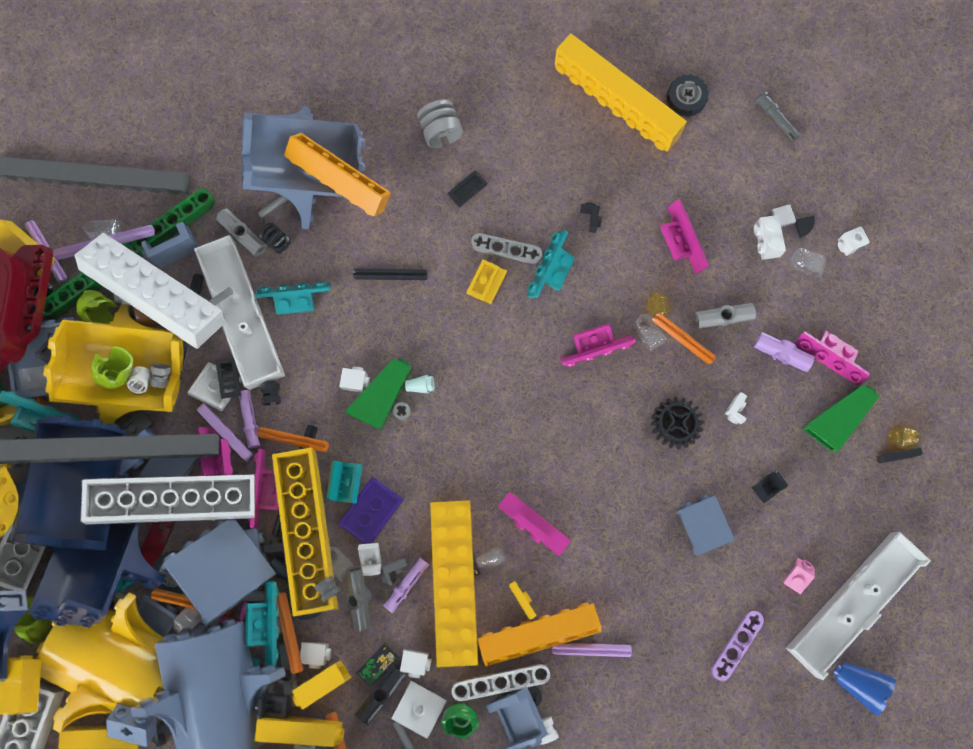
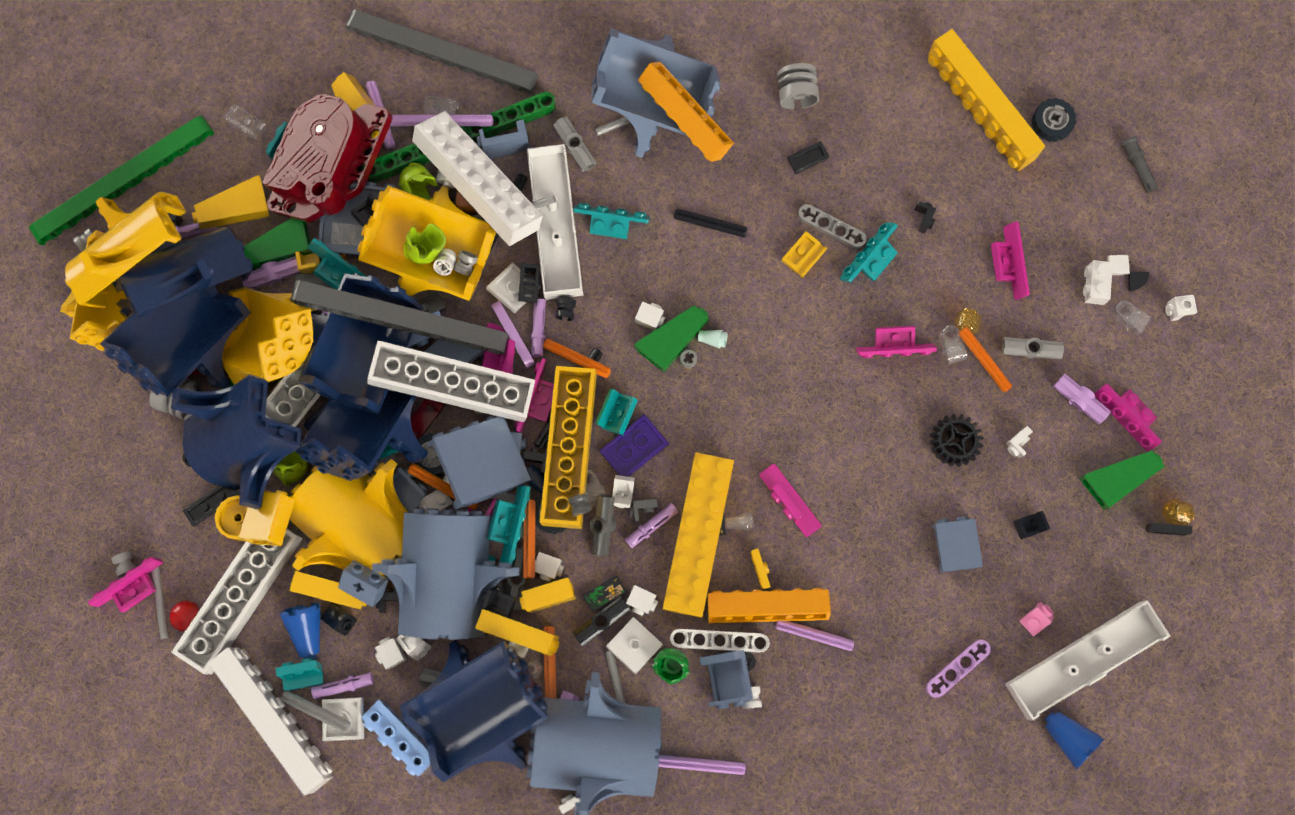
camera: 15 degrees right, 0 degrees up
(274, 237) = (606, 158): black gear -> none

